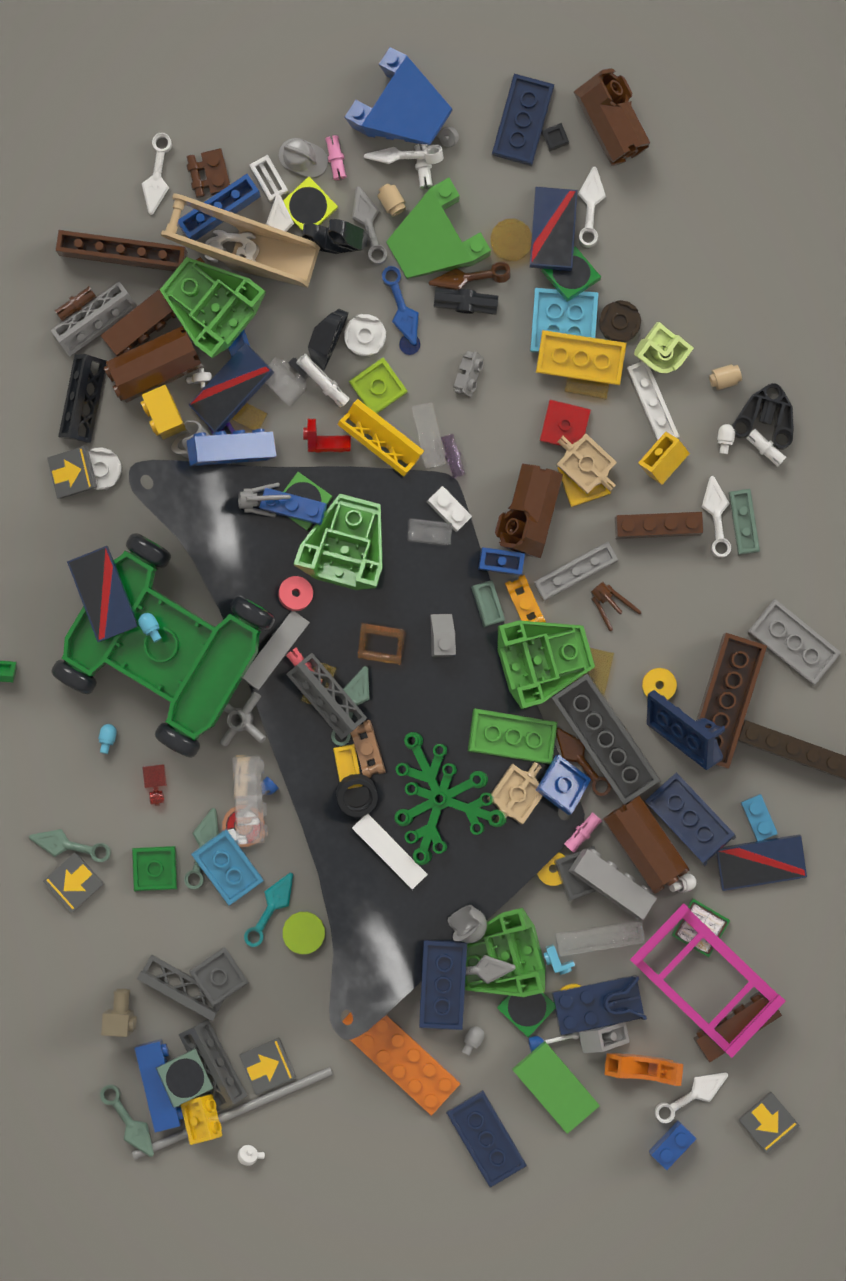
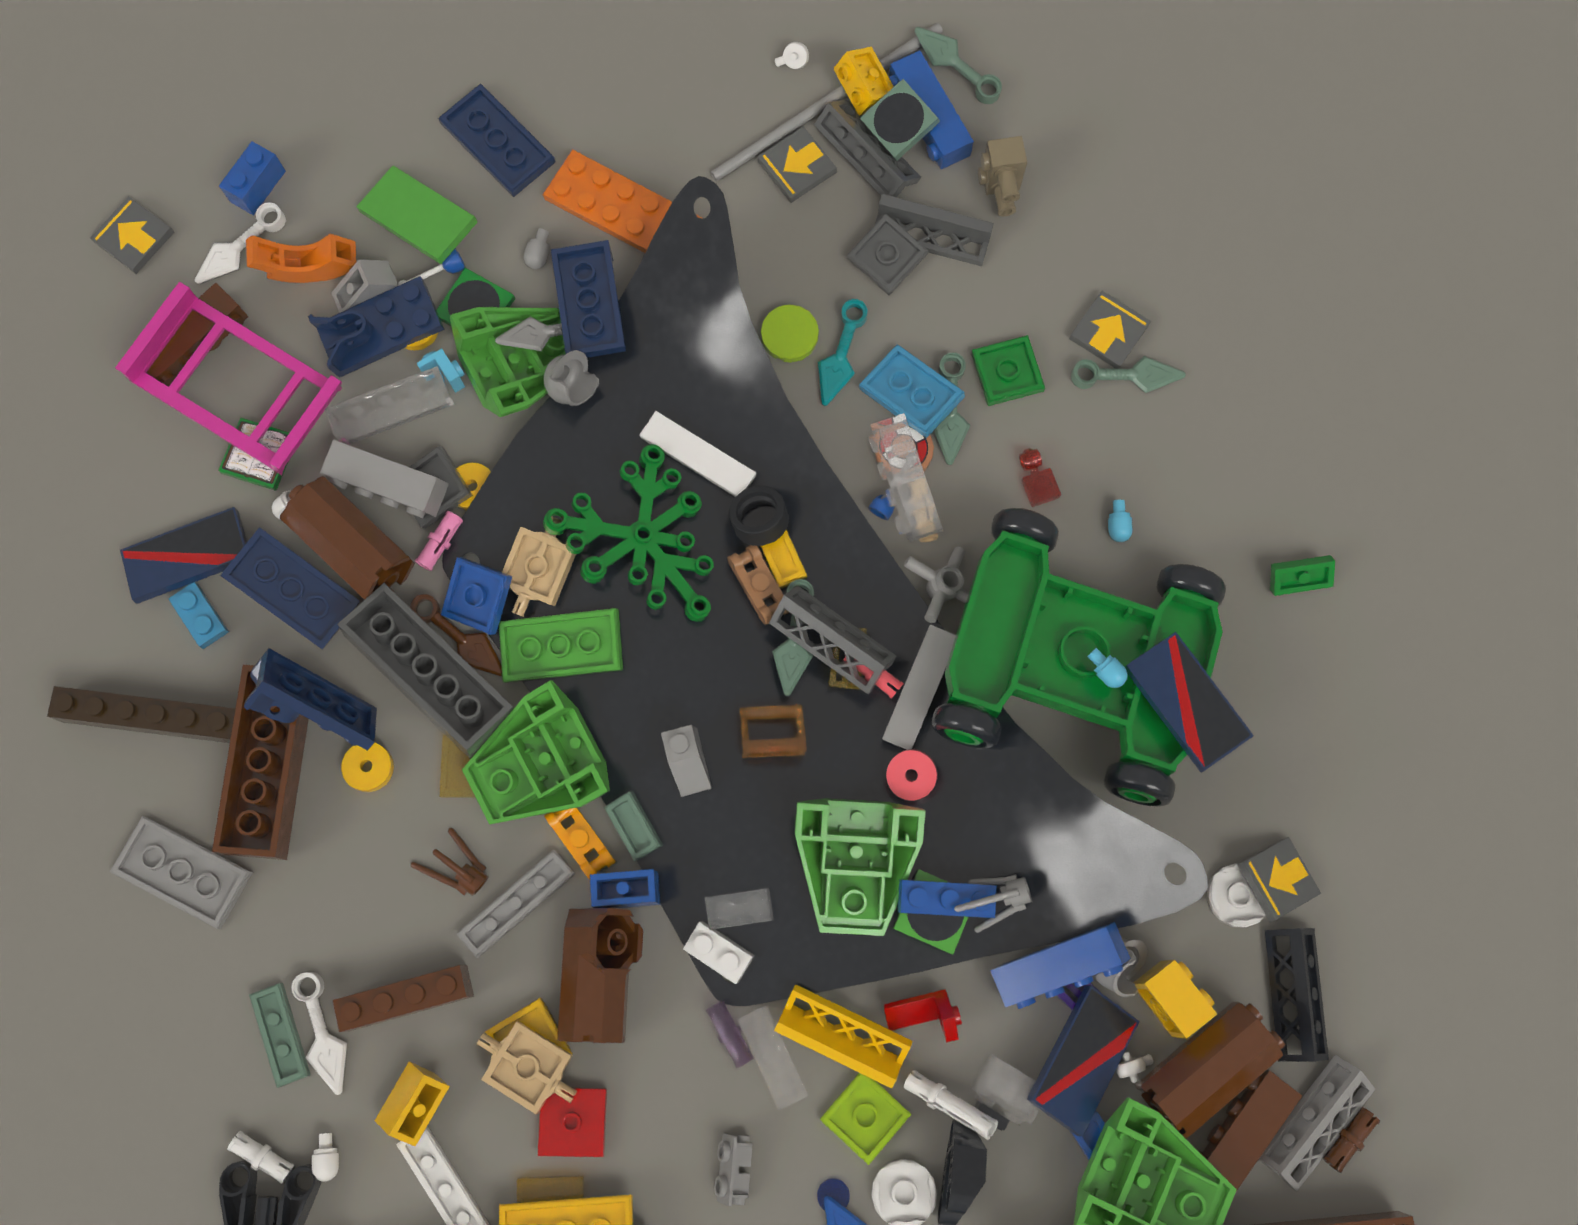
camera: 170 degrees right, 10 degrees down
(250, 417) = (1042, 1023): clear yellow tile -> none

